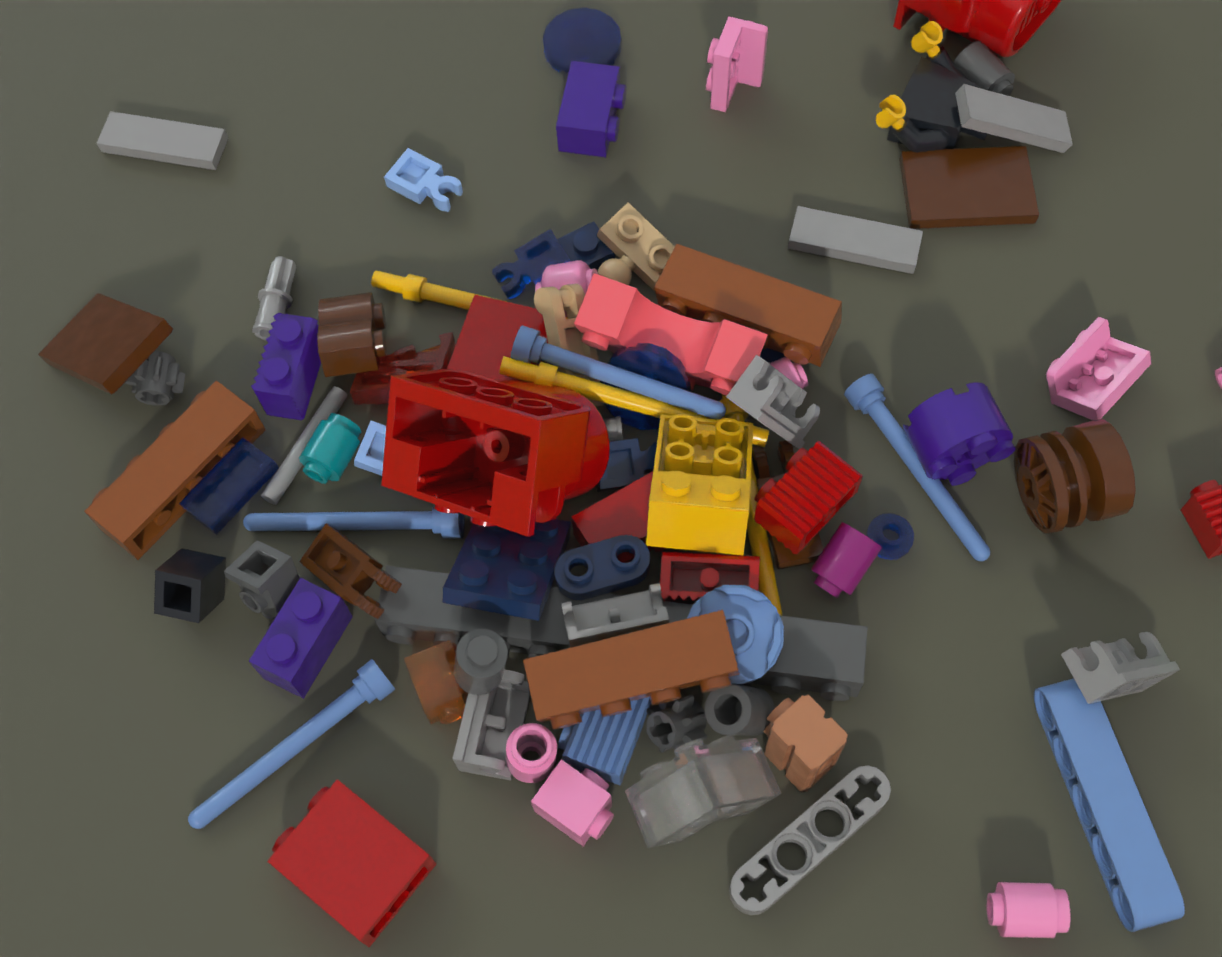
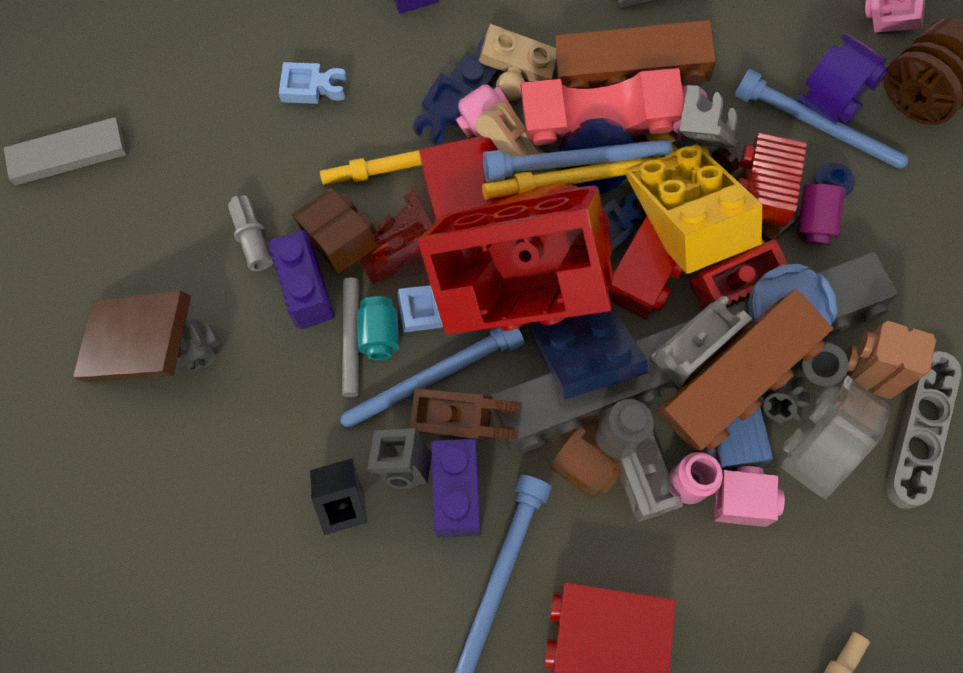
camera: 30 degrees left, 5 degrees up
(148, 493) = (258, 411): dark orange brick -> none
(229, 485) = (312, 400): clear blue plate -> none
(604, 569) = (662, 306): dark blue plate -> none

